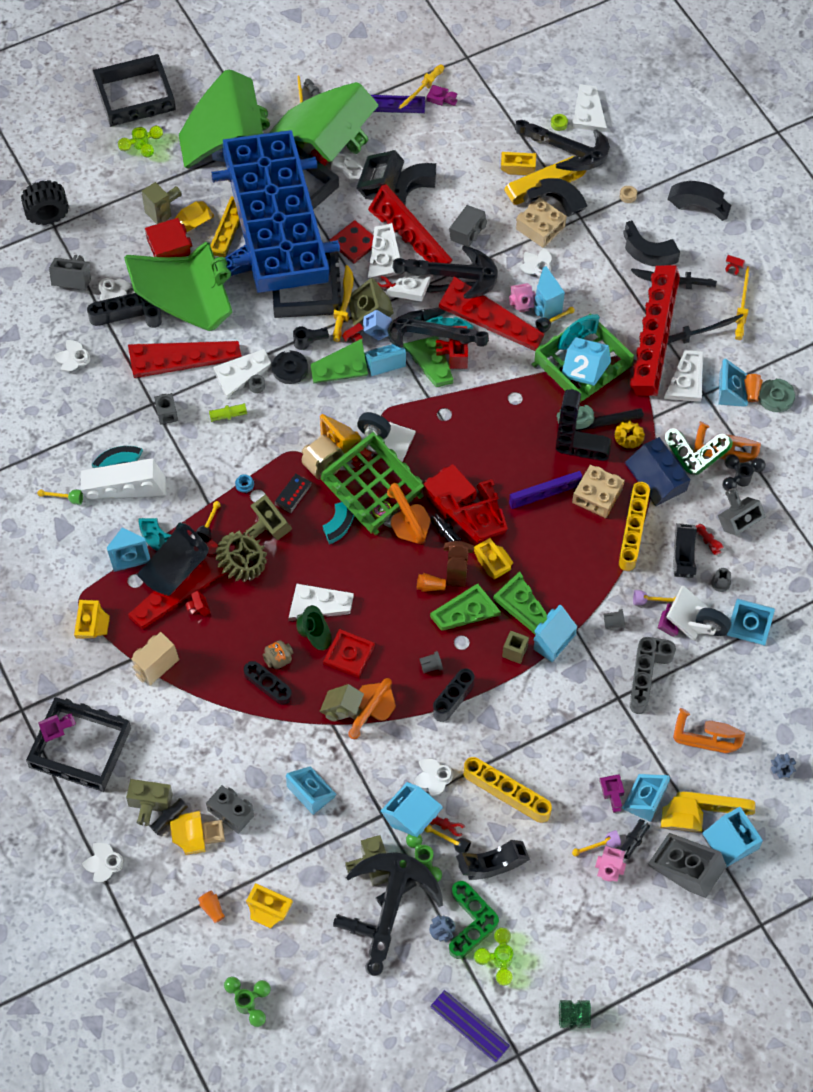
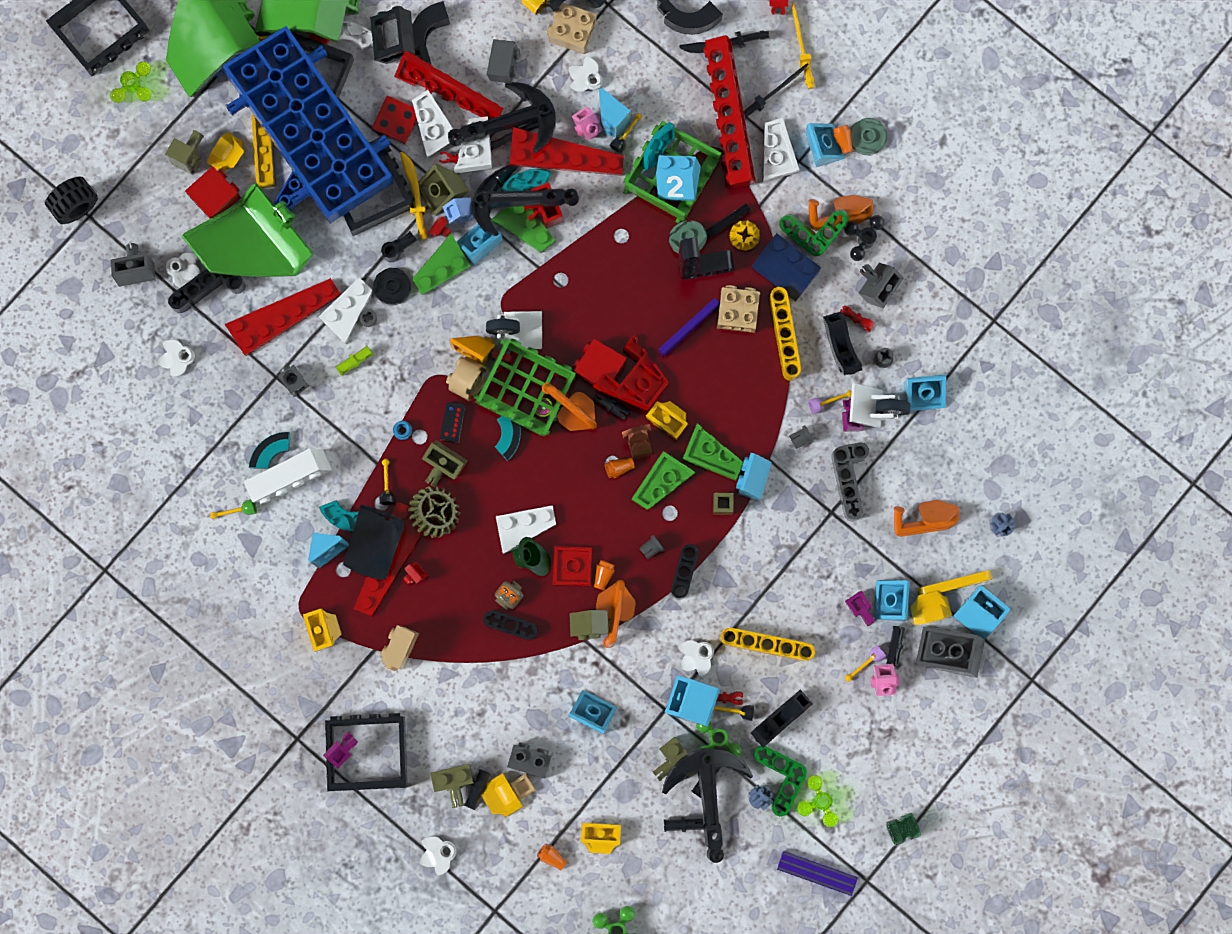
camera: 20 degrees left, 20 degrees up
(376, 668) = (603, 574): none -> orange cone

